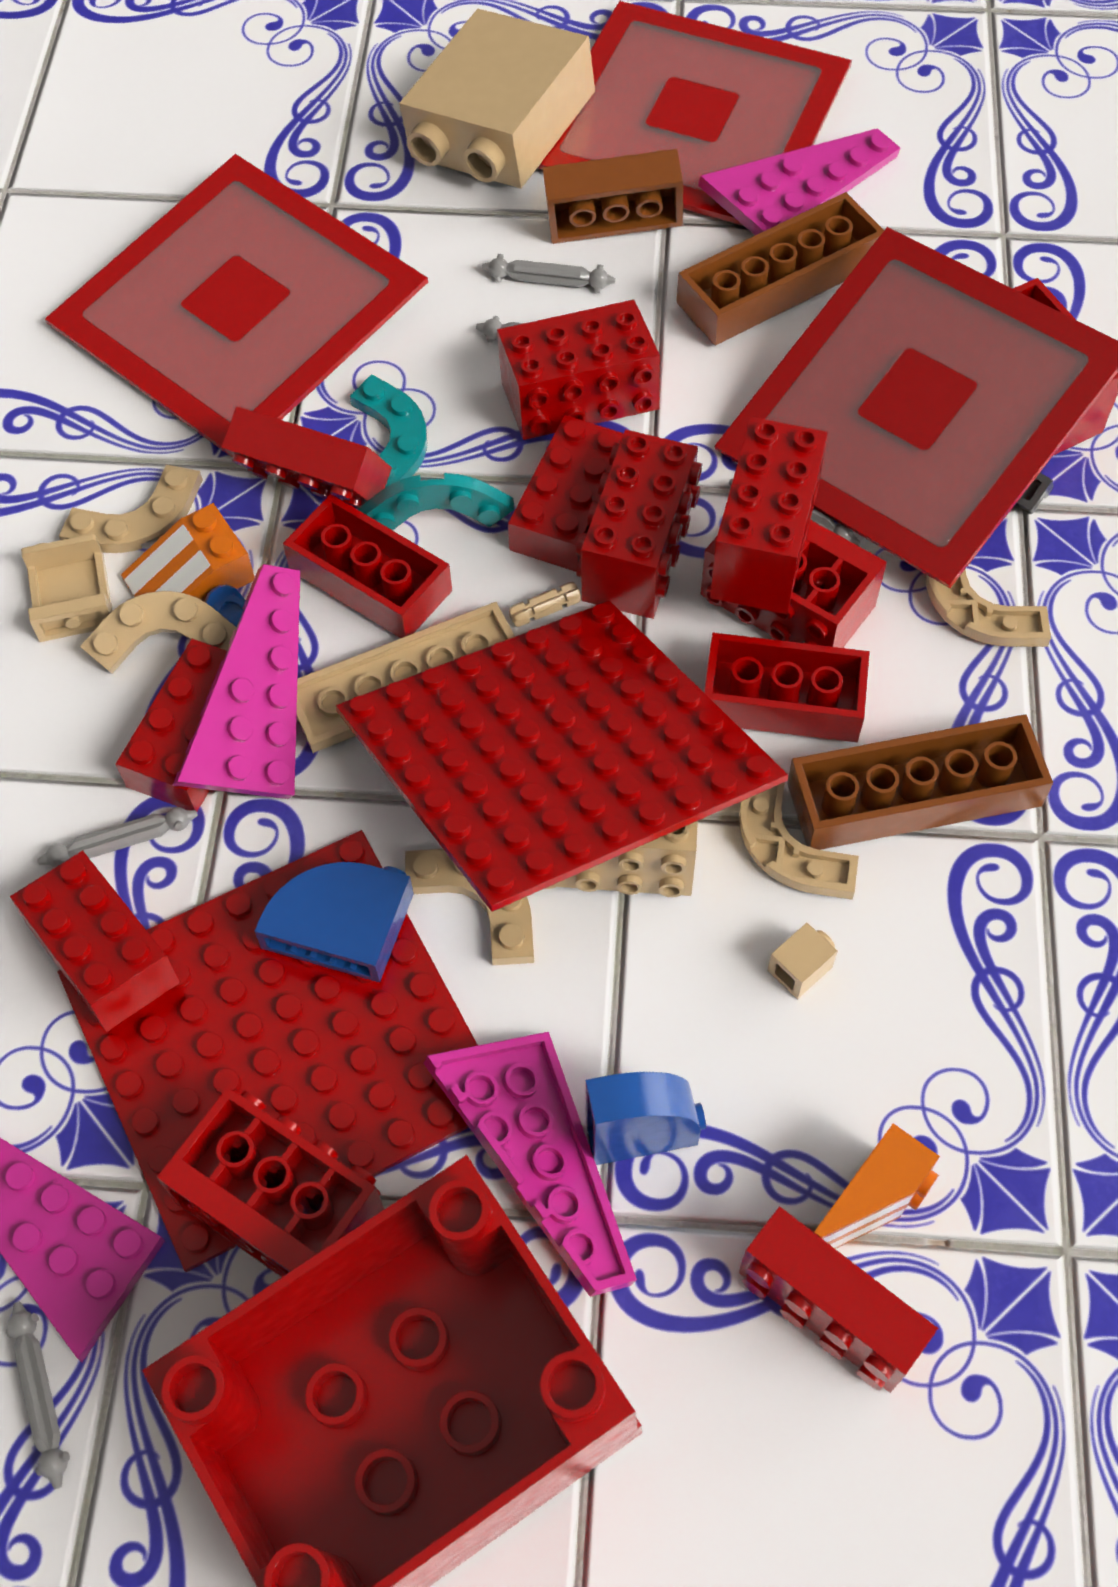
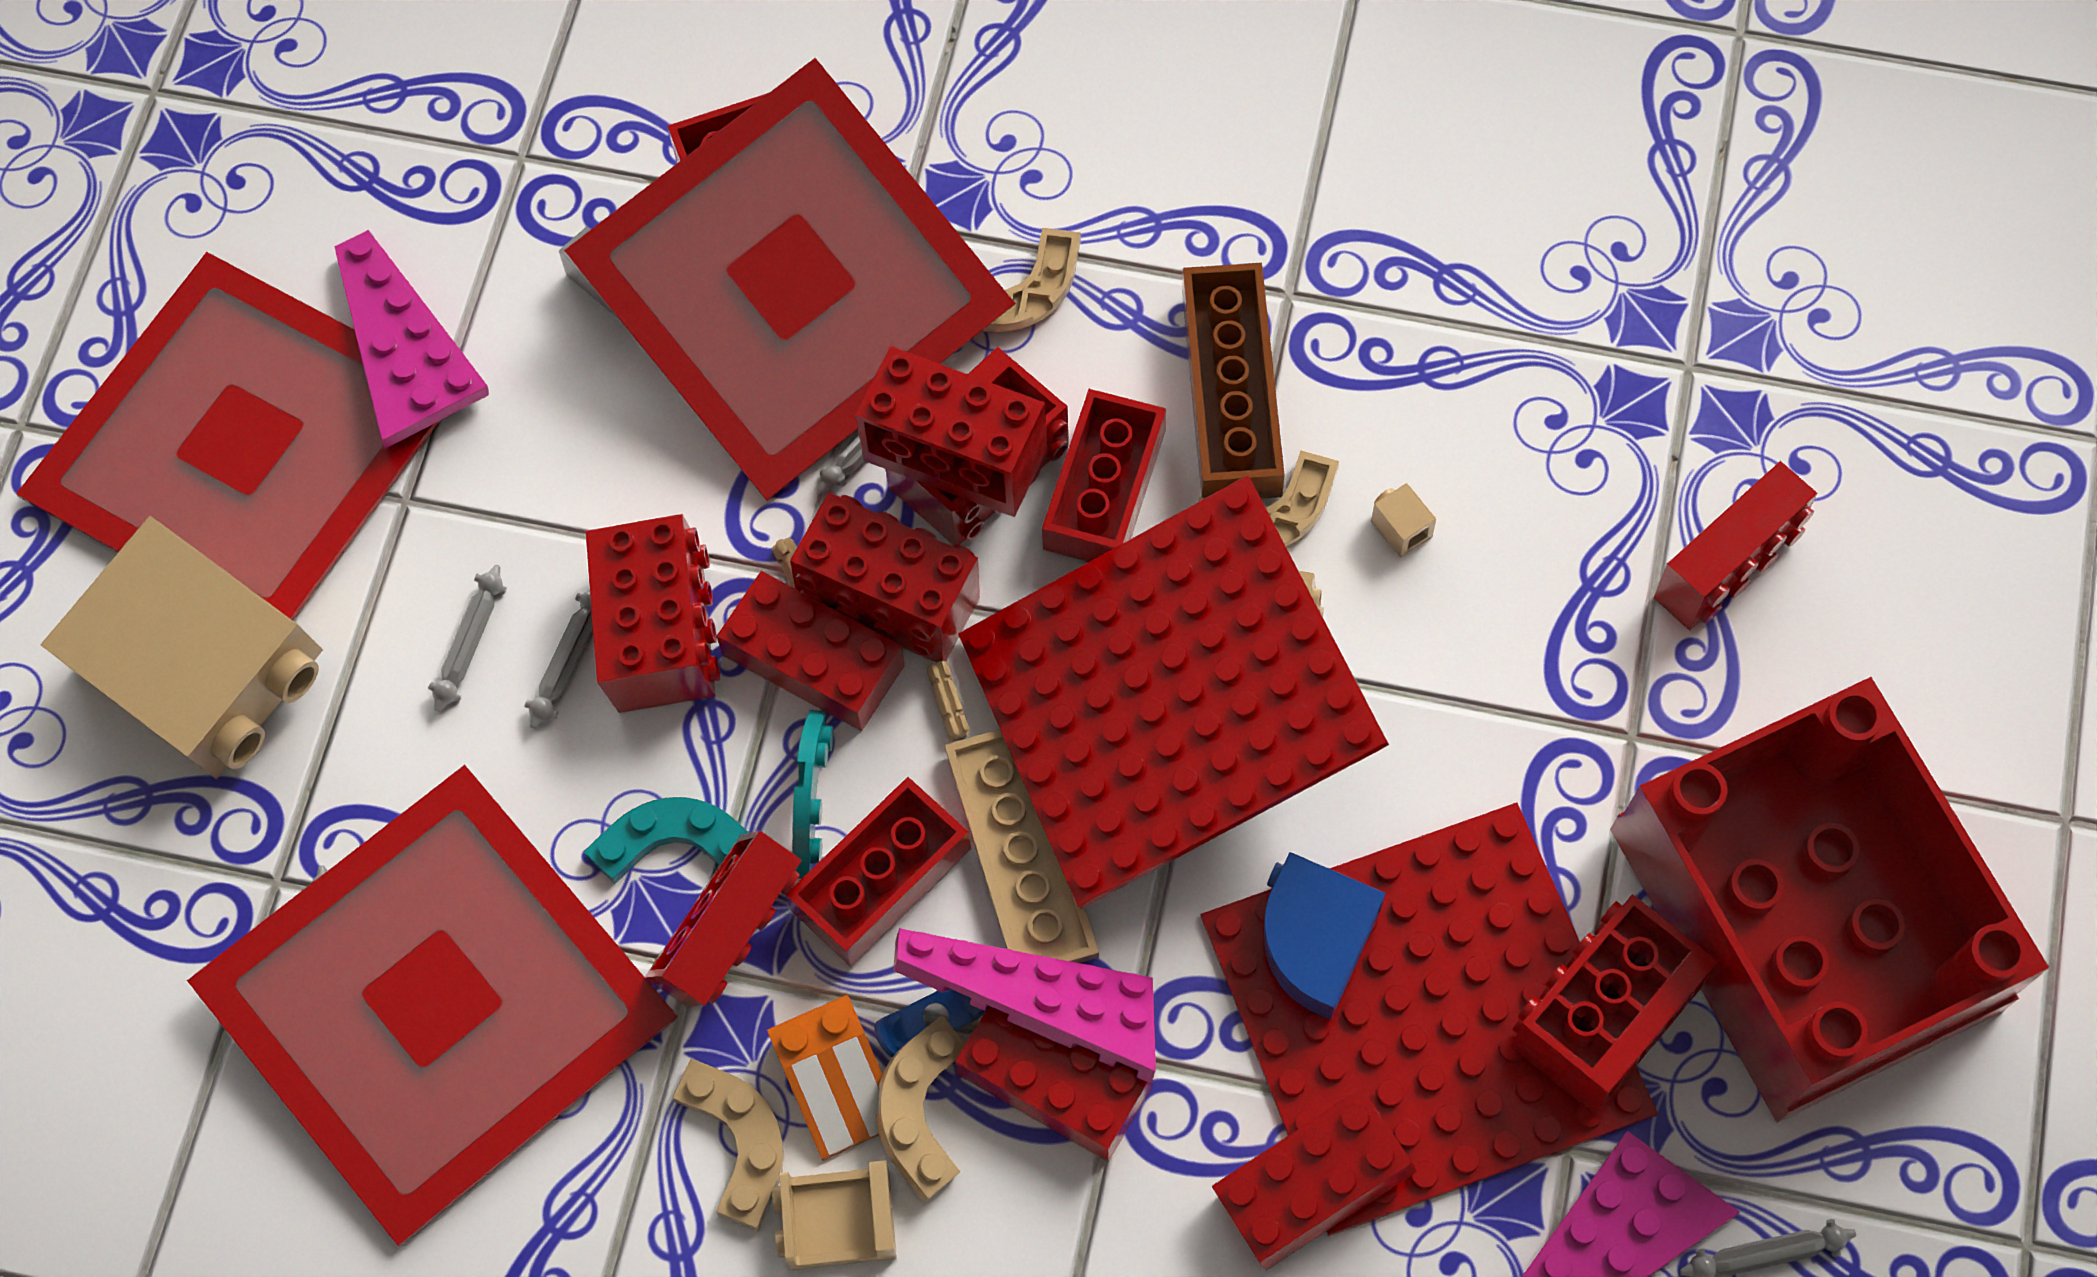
camera: 80 degrees left, 5 degrees up
(119, 836) = (1178, 1167): light grey wheel -> none
(510, 926) = (1261, 836): tan plate -> none
(530, 1128) = (1548, 781): dark pink wing -> none
(614, 196) = (389, 539): dark orange brick -> none
(640, 1115) = (1562, 678): blue brick -> none
(776, 268) = (538, 384): dark orange brick -> none
(885, 1185) = (1642, 496): orange slope -> none

